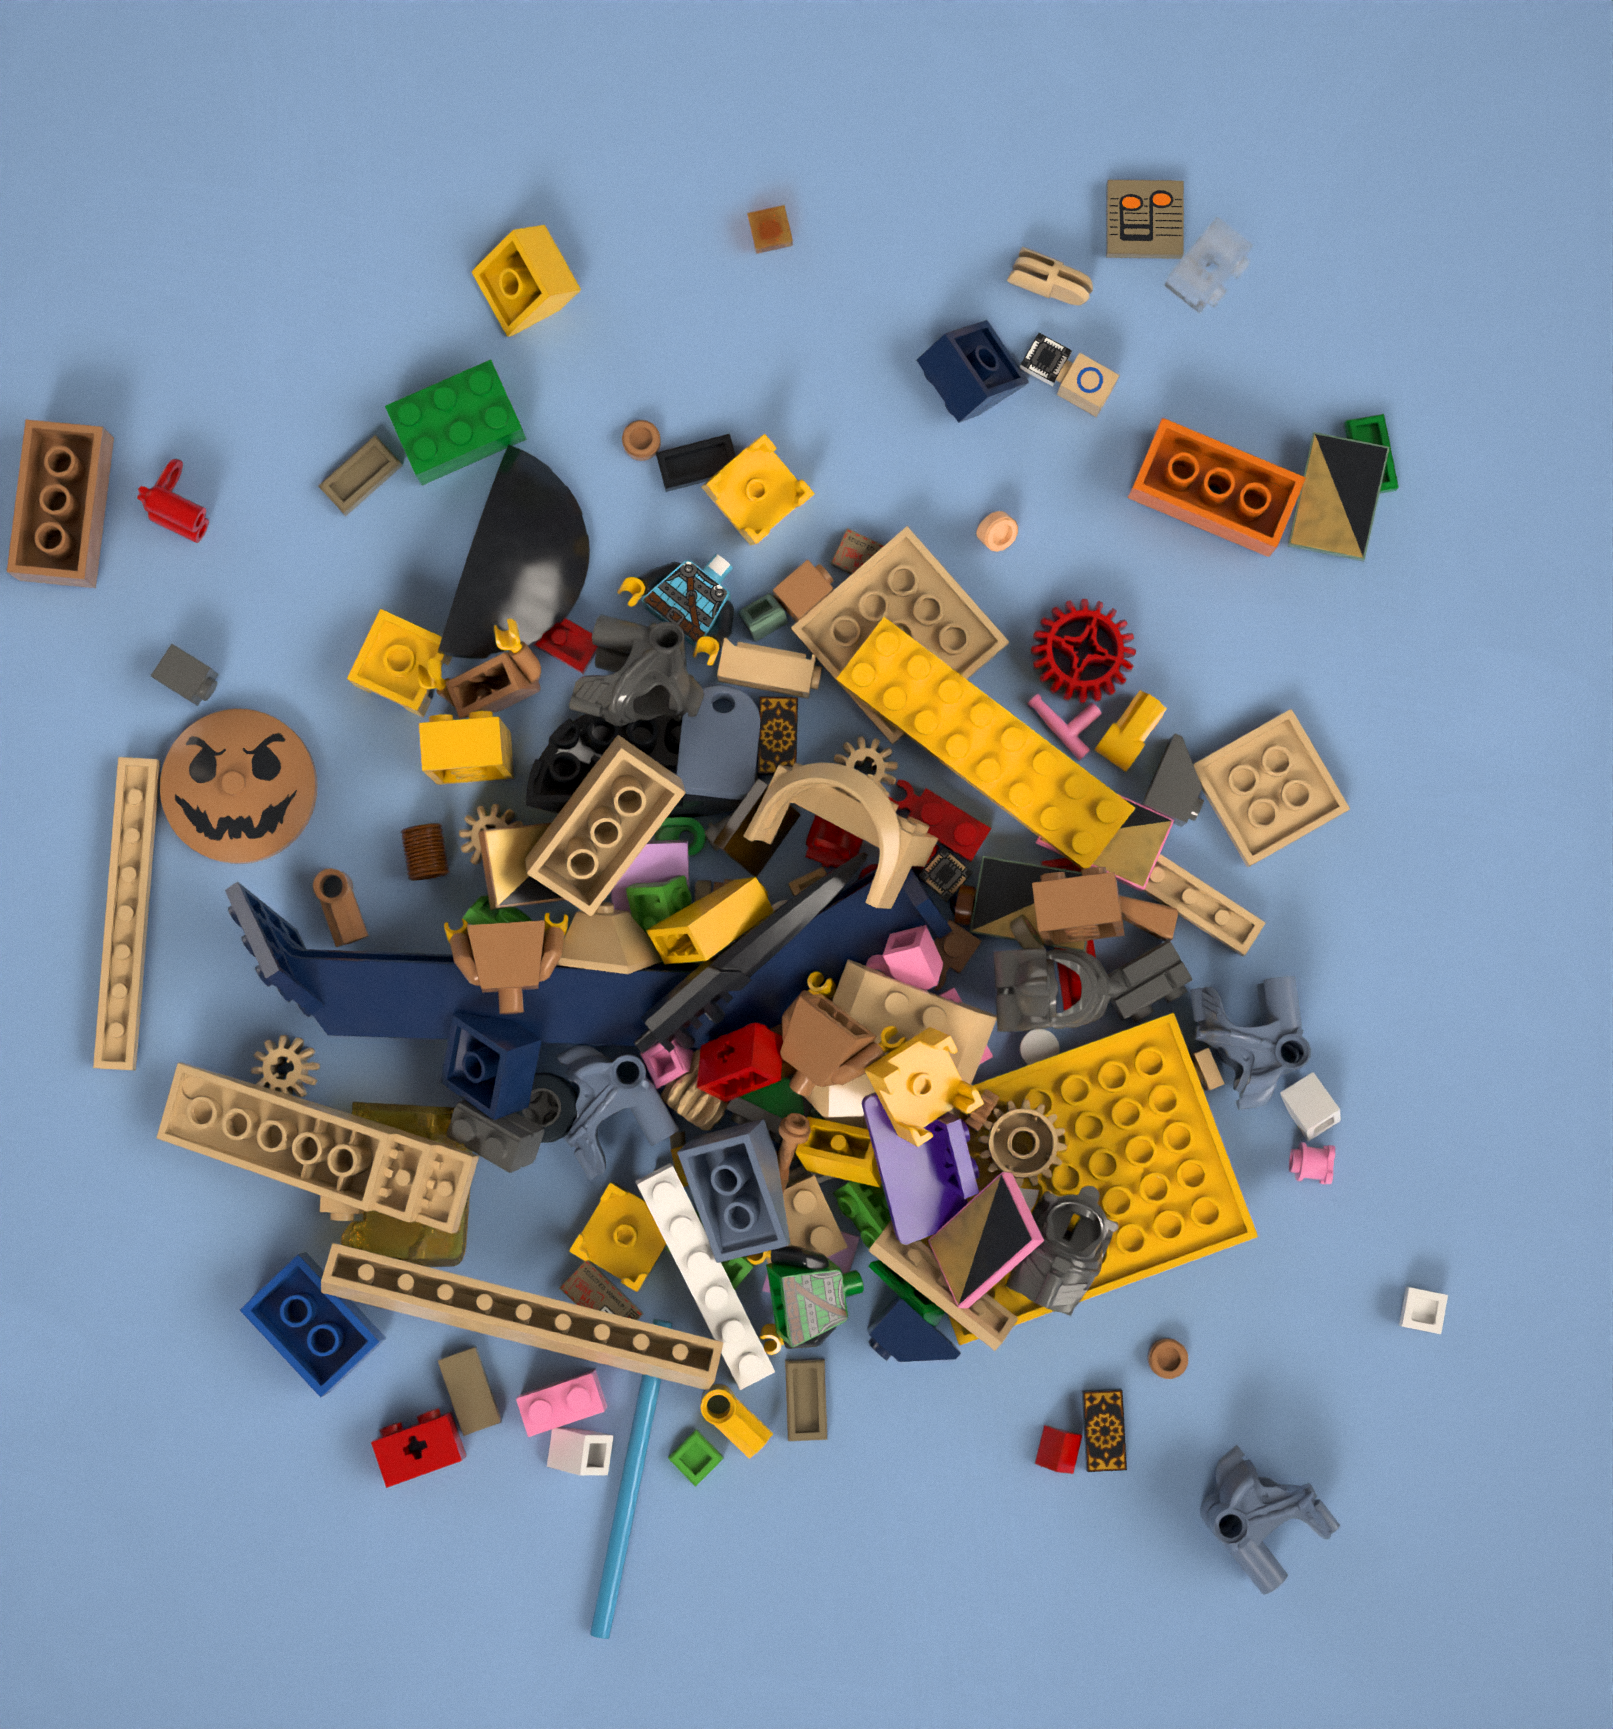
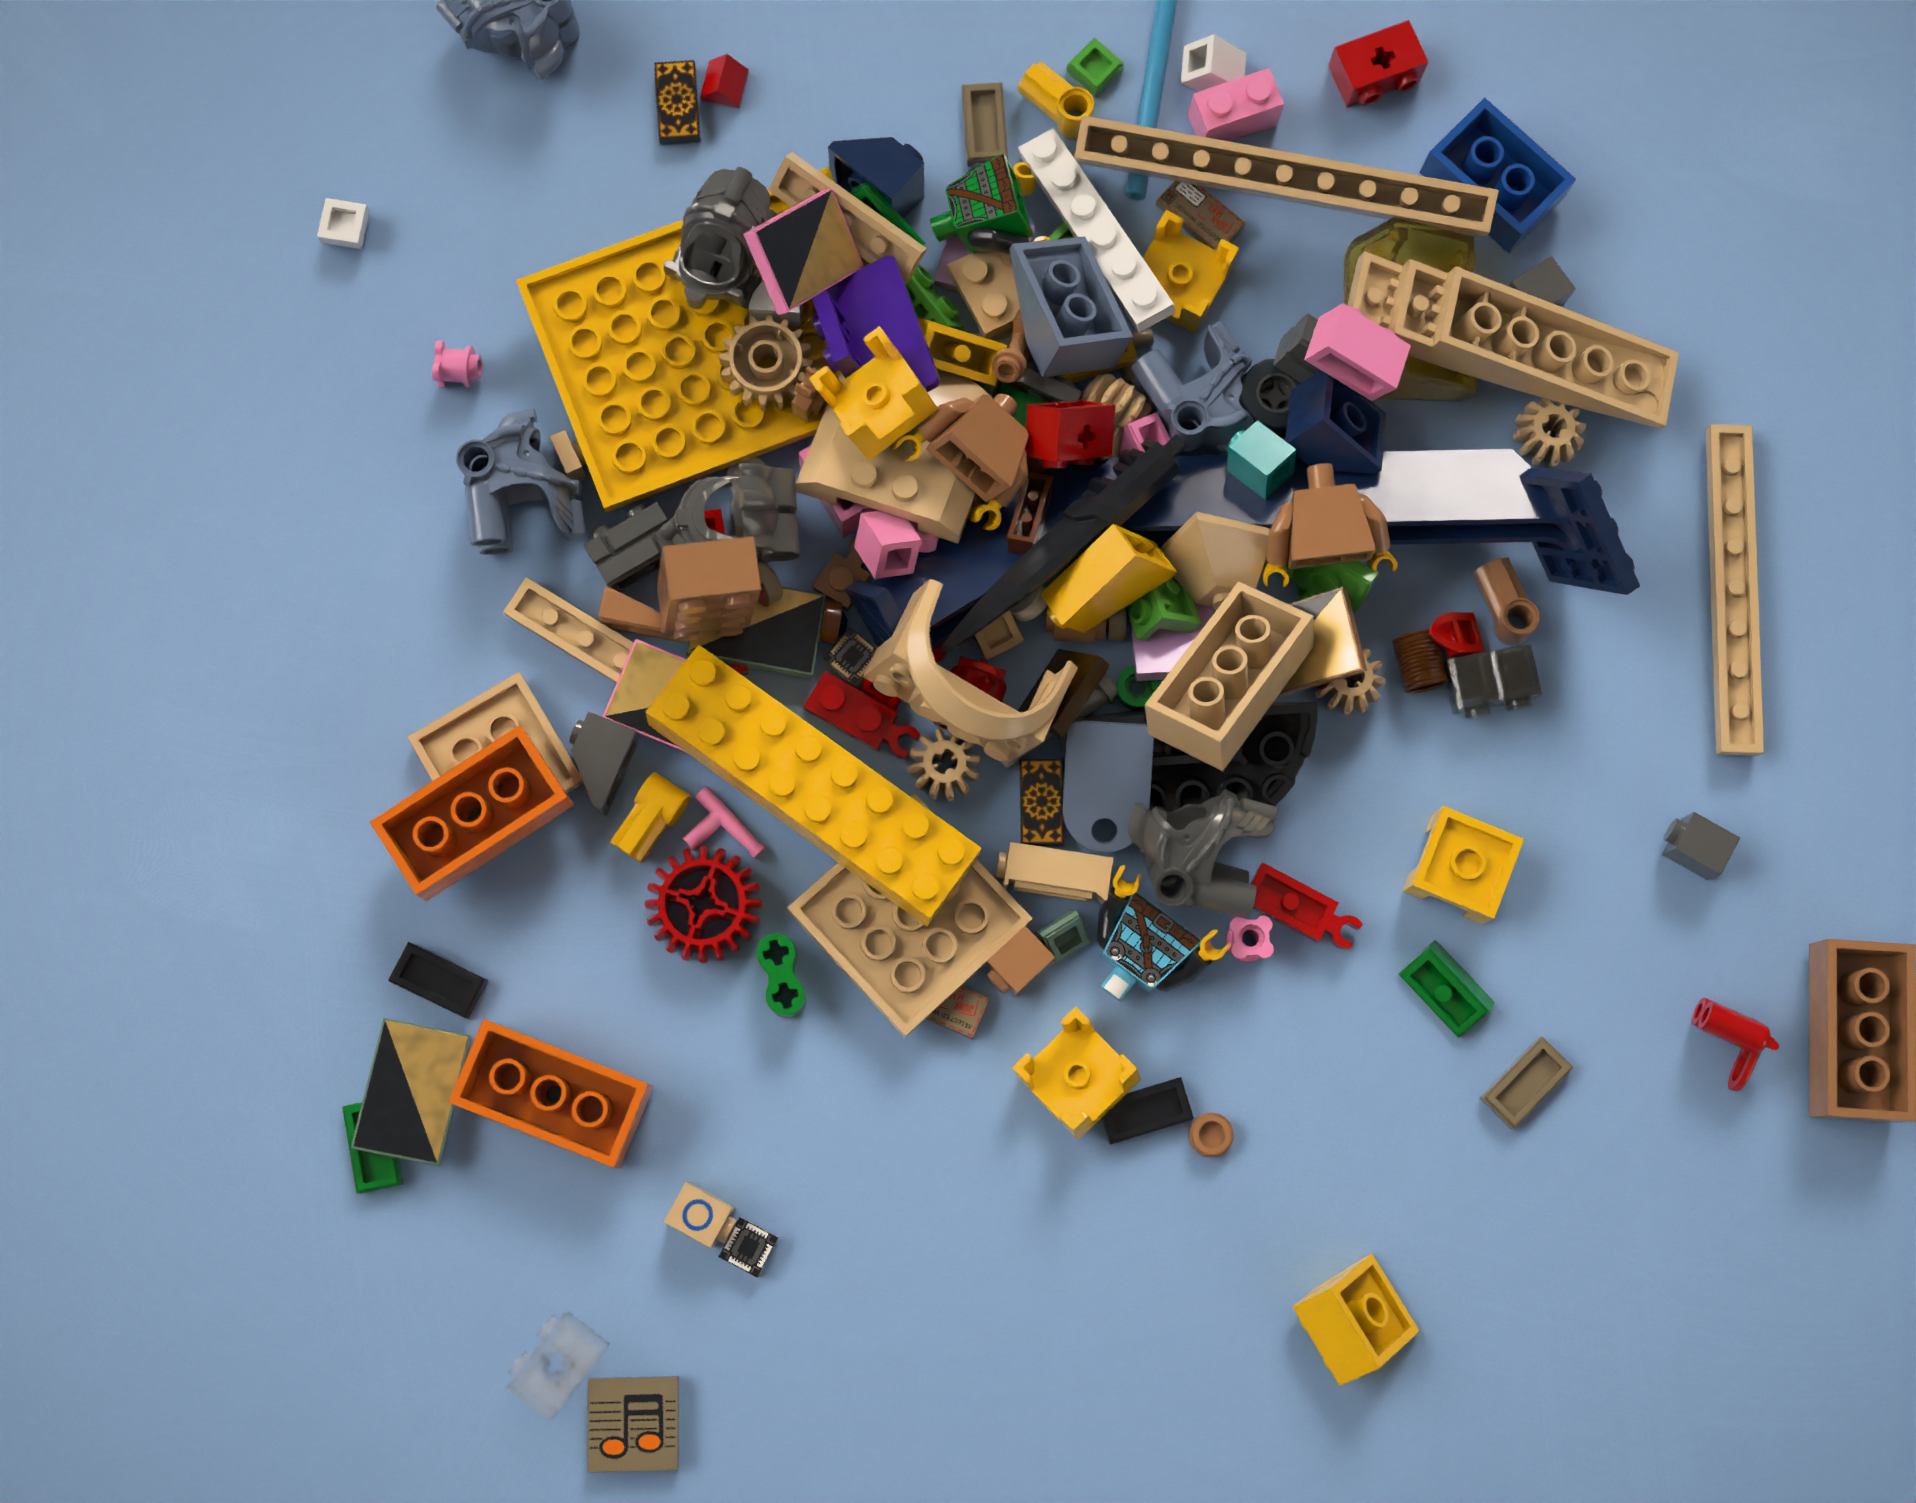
camera: 175 degrees right, 5 degrees down
(238, 786) = (1628, 730): medium nougat dish -> none
(283, 1208) = (1545, 282): none -> dark grey brick
(360, 832) = (1492, 680): none -> clear smoke brick
(389, 874) = (1457, 634): none -> red plate
(422, 559) = (1447, 989): none -> green slope
(455, 422) = (1425, 1143): green brick -> none
(466, 748) = (1386, 759): yellow brick -> none
(467, 1124) = (1357, 352): none -> bright pink brick
(469, 1391) = (1329, 122): dark tan tile -> none
(491, 684) = (1365, 831): medium nougat torso -> none
(522, 560) = (1338, 983): black brick -> none
(564, 1030) = (1260, 459): none -> brick
(592, 594) = (1259, 929): none -> bright pink brick
(770, 229) = (1075, 1392): clear orange plate -> none
(780, 986) = (1030, 513): none -> reddish brown piece
(971, 370) = (833, 1227): dark blue slope -> none
(997, 531) = (802, 1040): light nougat tile -> none
(1014, 585) = (781, 975): none -> green axle
(1050, 278) = (745, 1351): tan arm -> none
(1167, 1358) = (611, 173): medium nougat tile -> none
(1311, 1106) = (457, 422): white brick -> none
(1317, 595) = (438, 980): none -> black tile
(1321, 708) = (432, 828): none -> orange brick

